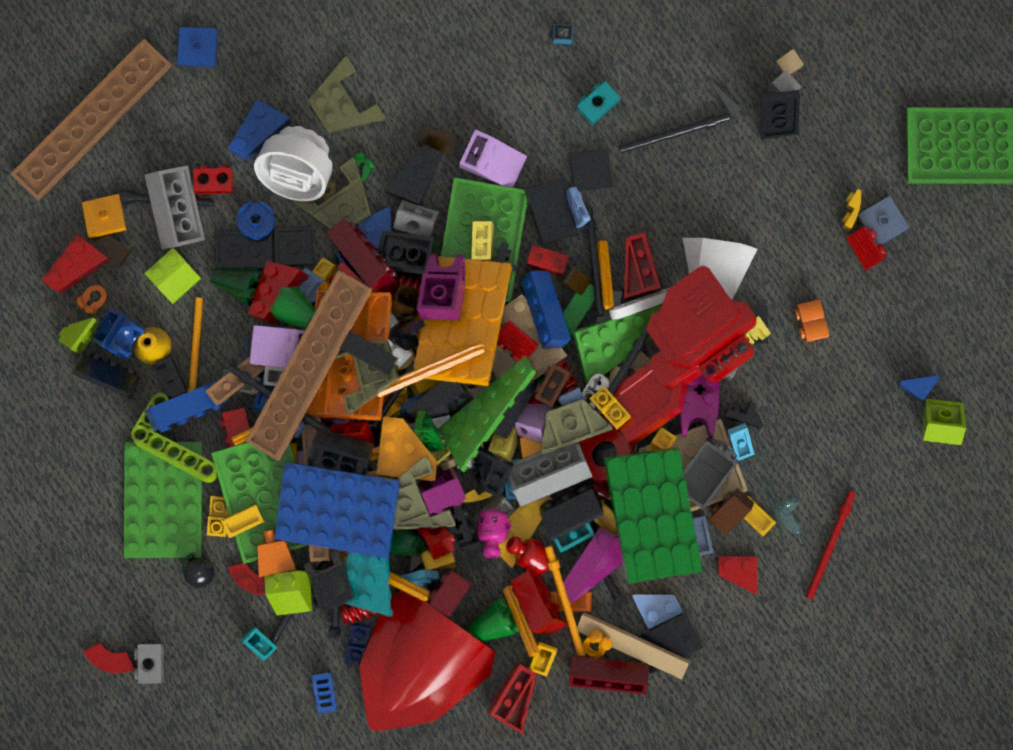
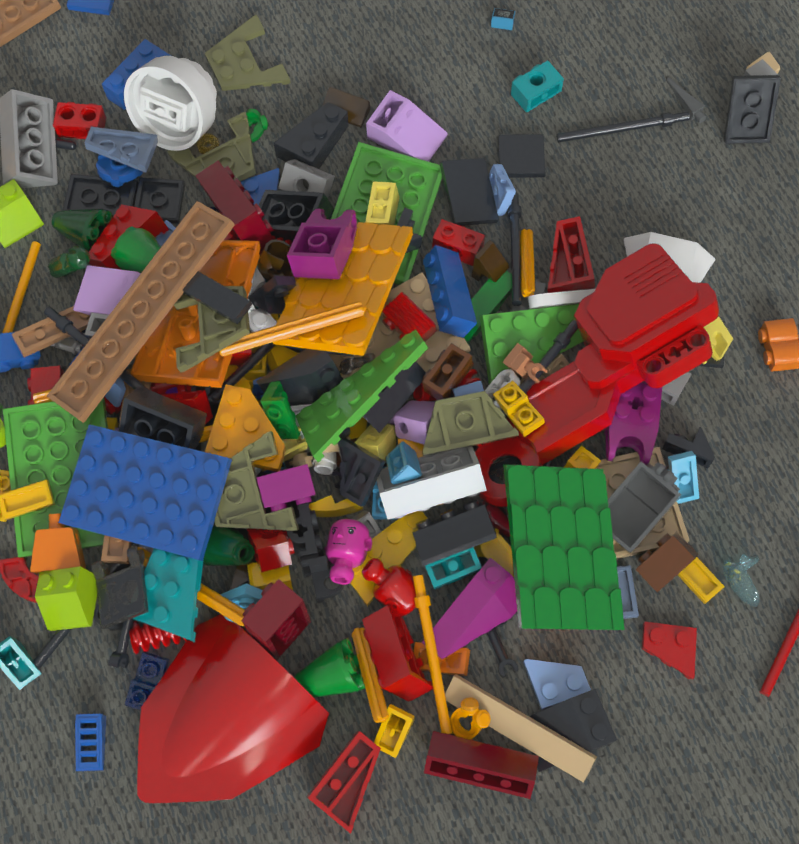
camera: 15 degrees right, 15 degrees down
(235, 320) = (69, 262): none -> dark green piece
(257, 205) = (123, 146): none -> sand blue wing
(527, 462) = (403, 464): none -> dark azure slope
(609, 369) = (520, 362): none -> nougat piece

